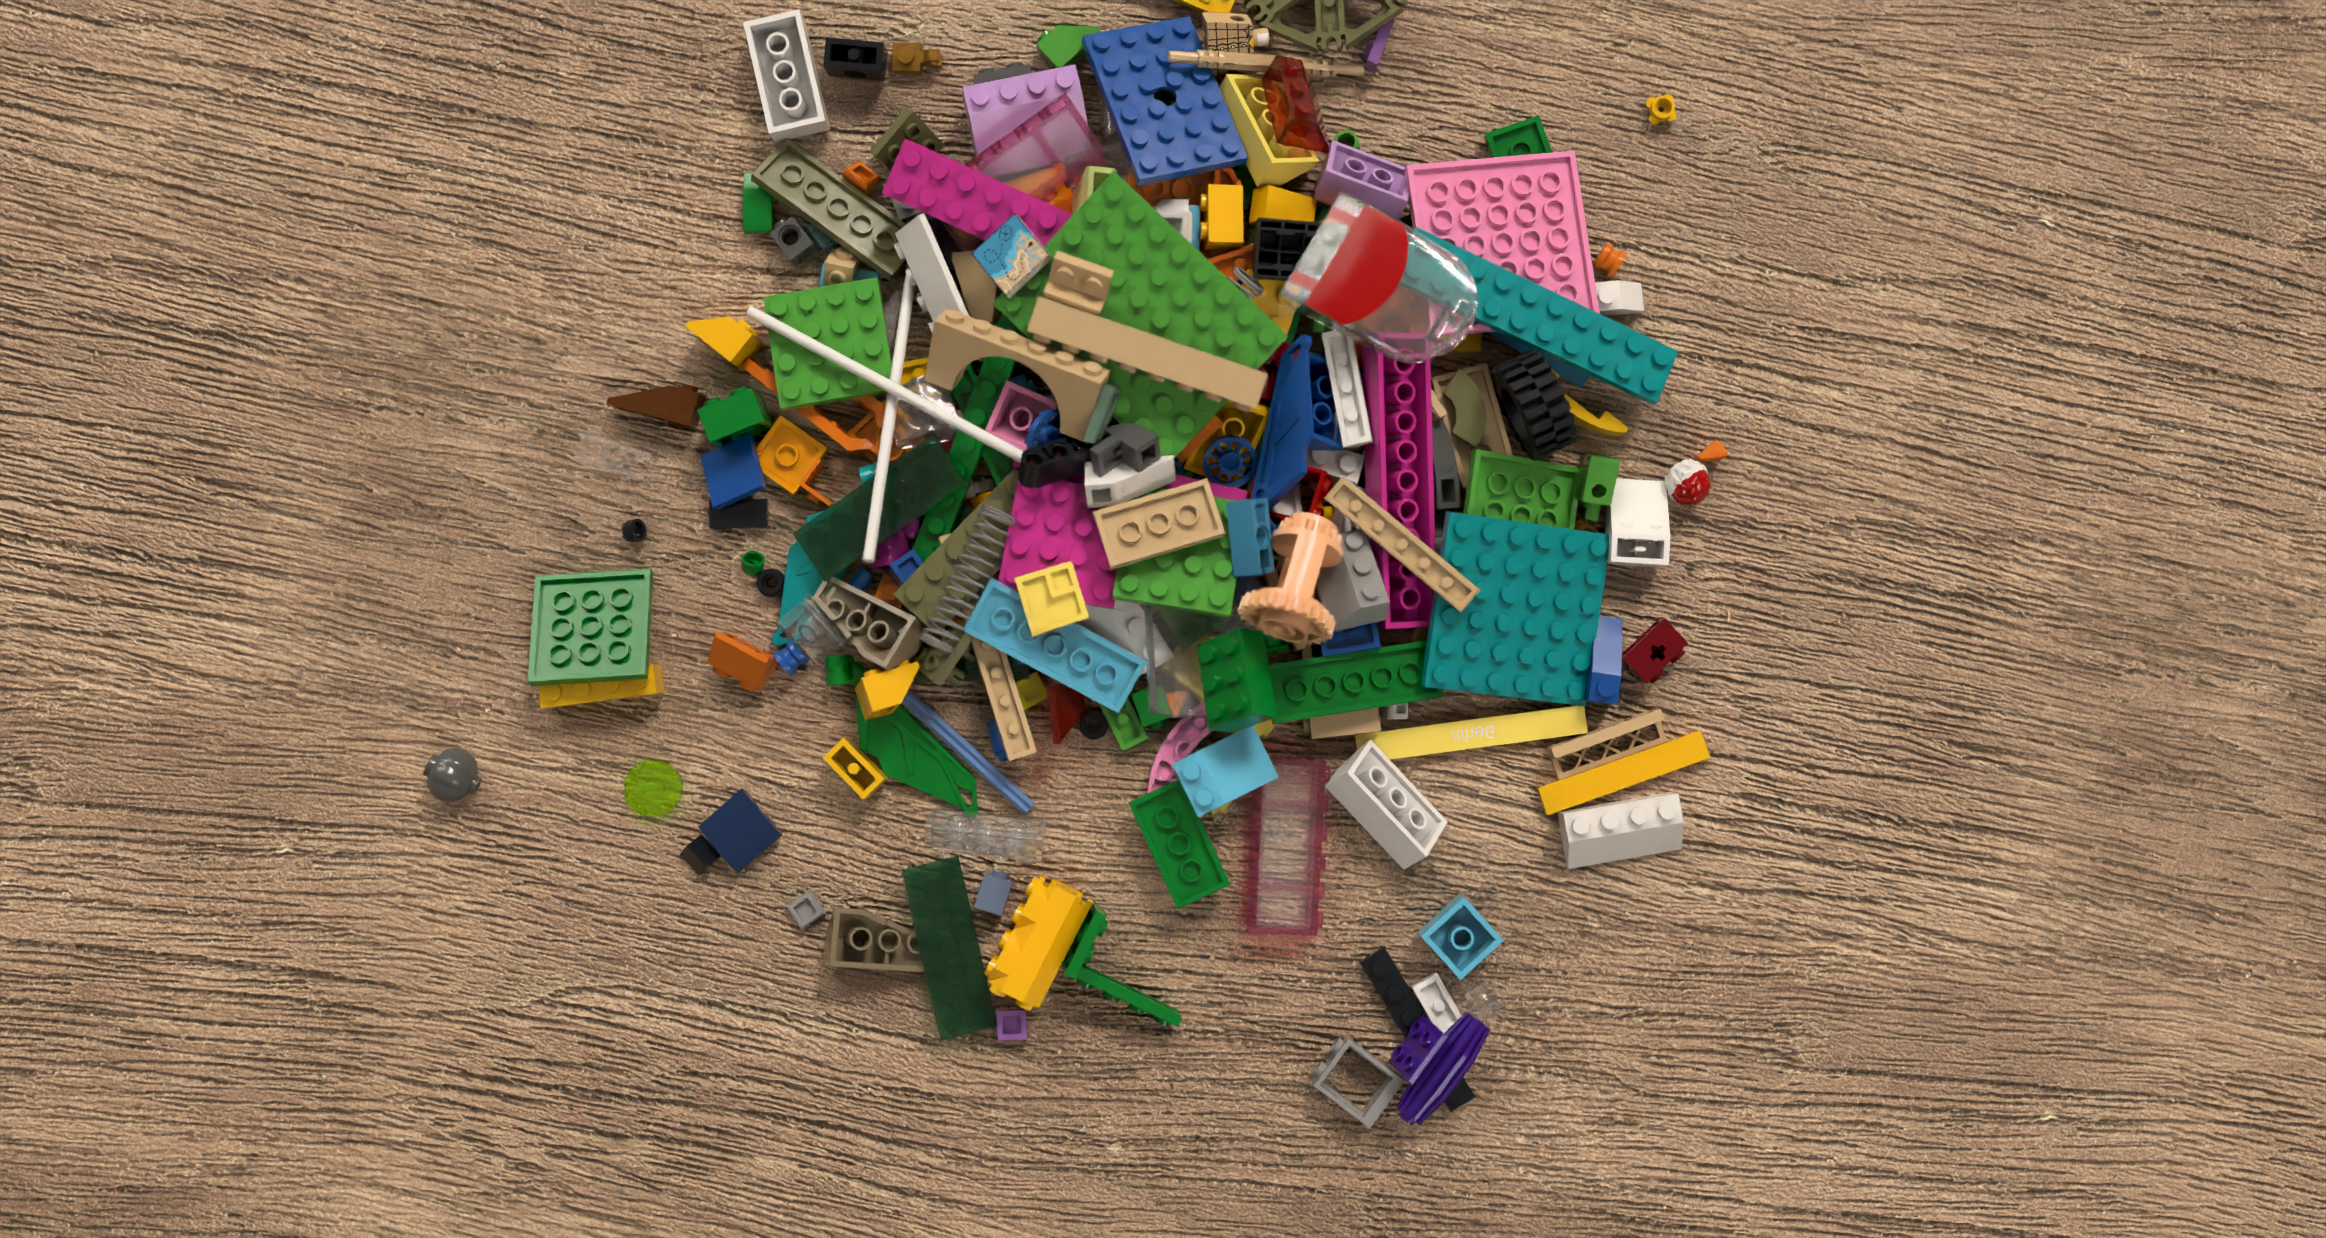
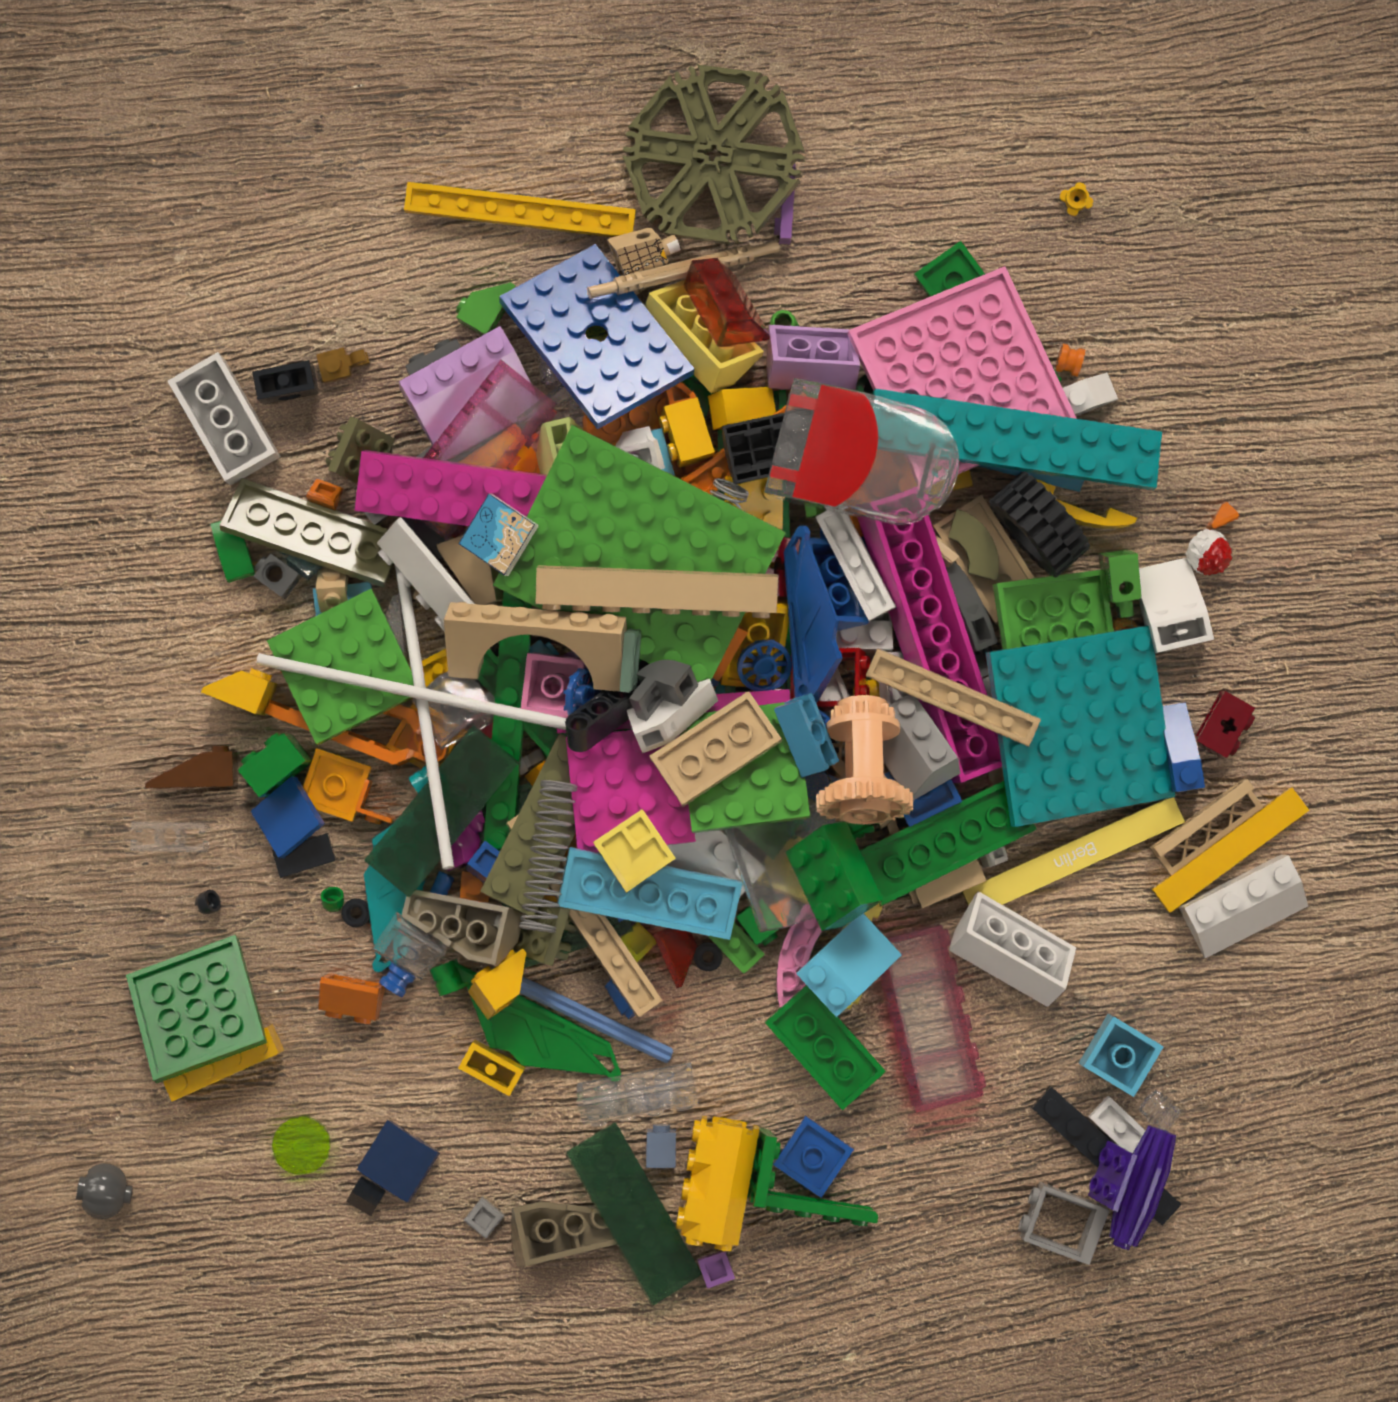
camera: 20 degrees left, 0 degrees up
(1078, 283) = (571, 544): tan bracket -> none
(1136, 945) = (813, 1156): none -> blue plate

